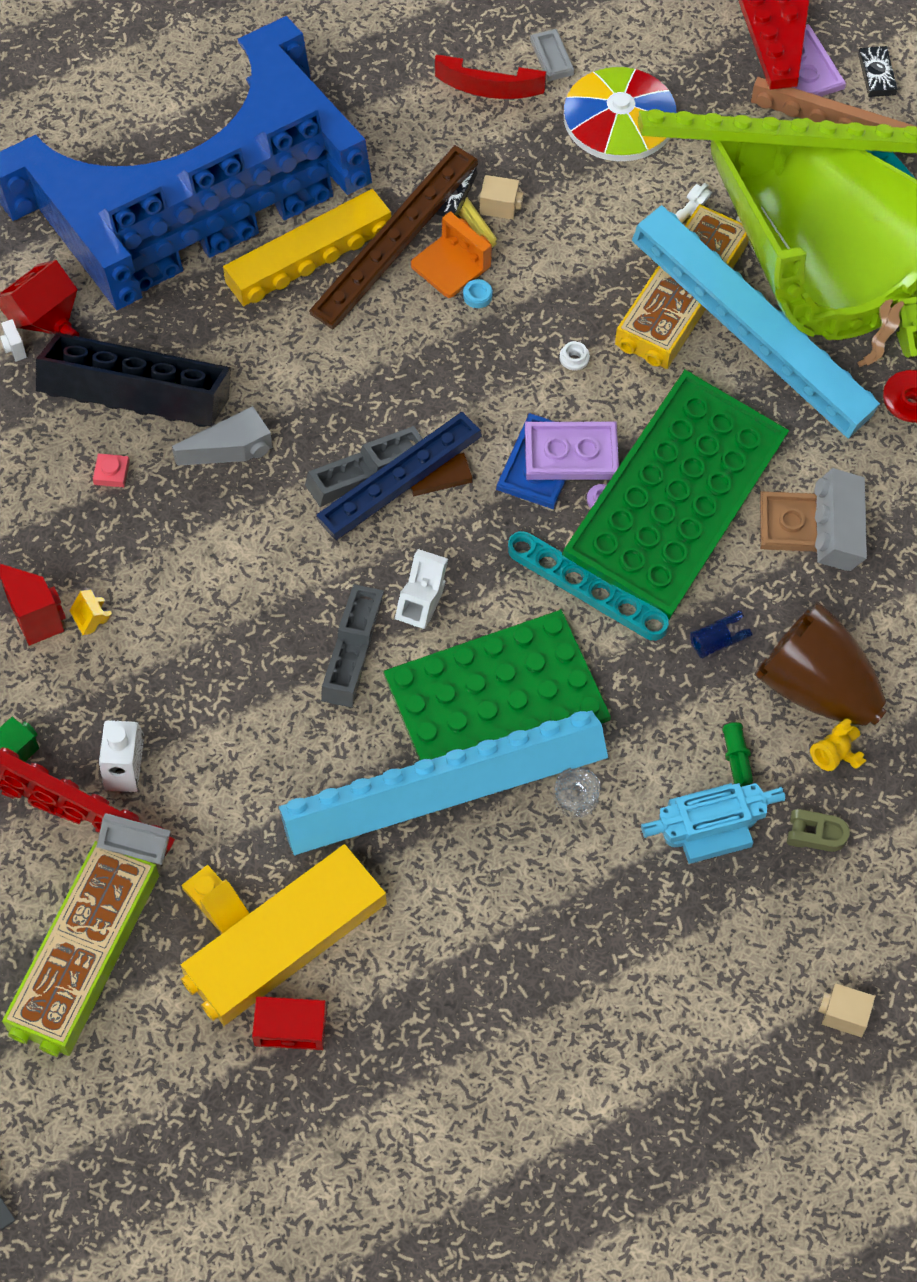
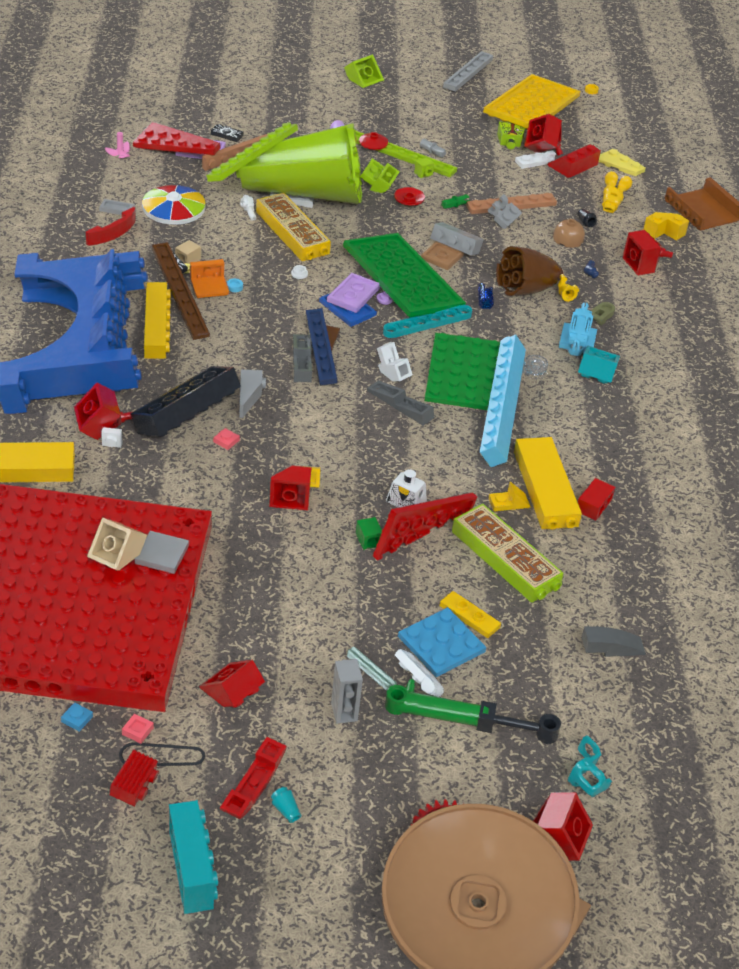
camera: 65 degrees left, 20 degrees down
(133, 838) = (466, 501): light grey tile -> none
(652, 884) = (598, 364): none -> teal slope
(737, 753) = (548, 317): green axle -> none
(755, 321) = (335, 211): medium azure brick -> none
(846, 1009) = (693, 339): tan brick -> none
(889, 323) = (370, 182): medium nougat hair -> none

